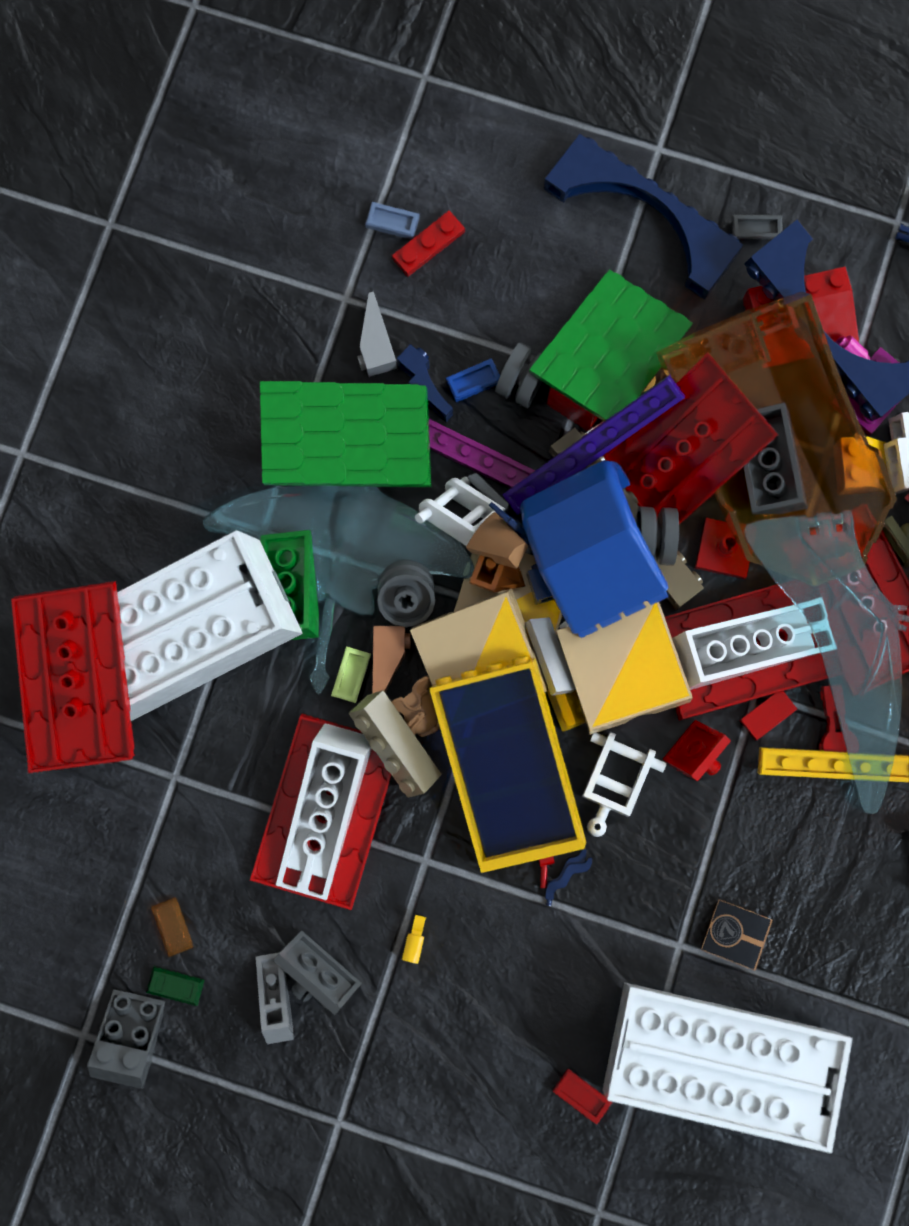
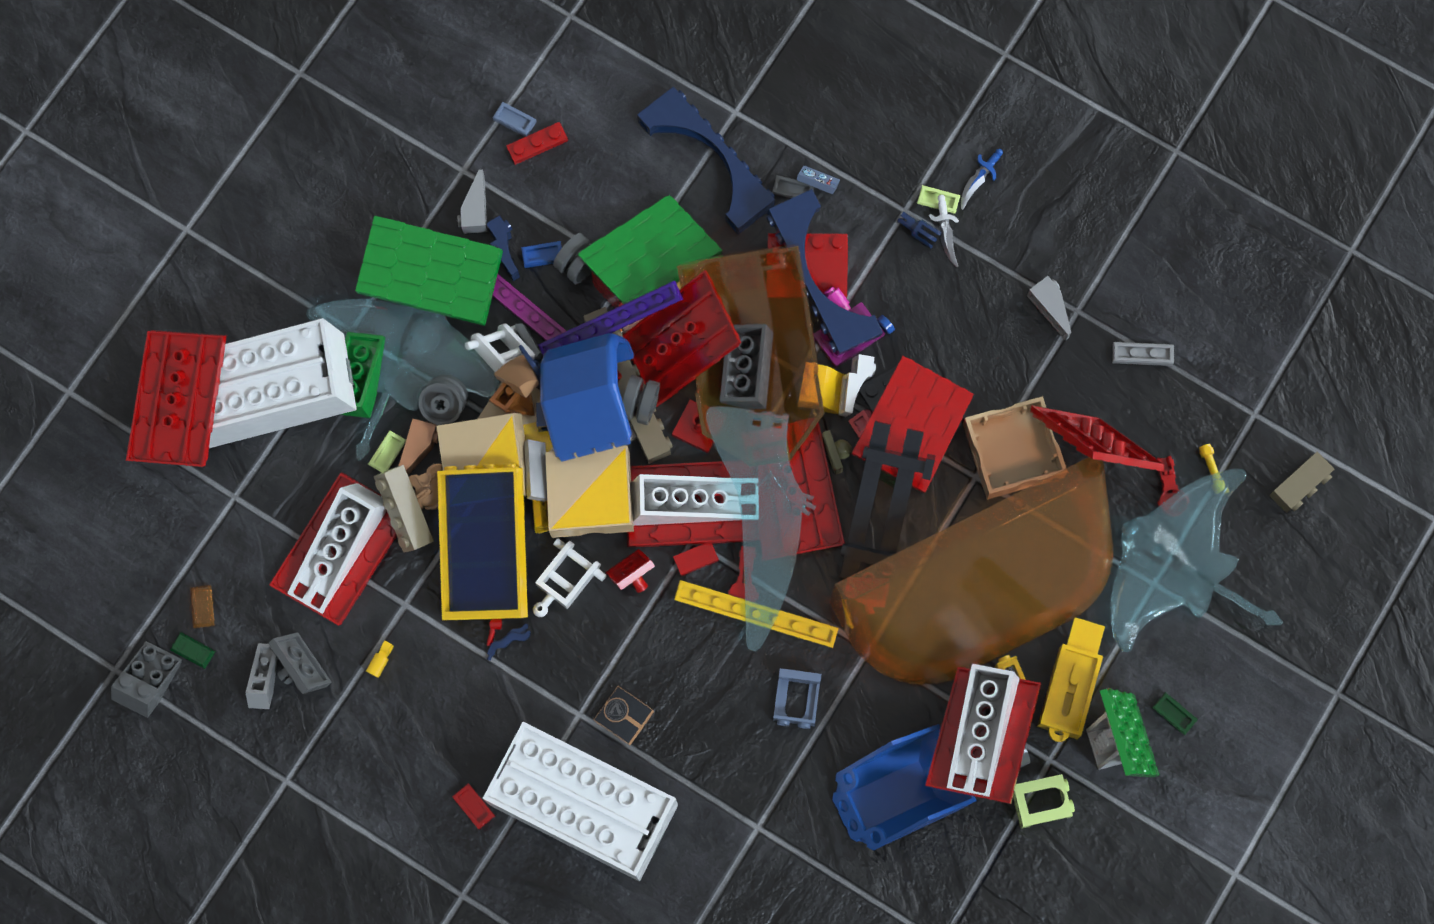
camera: 15 degrees right, 5 degrees down
(785, 208) = (818, 179): none -> sand blue tile

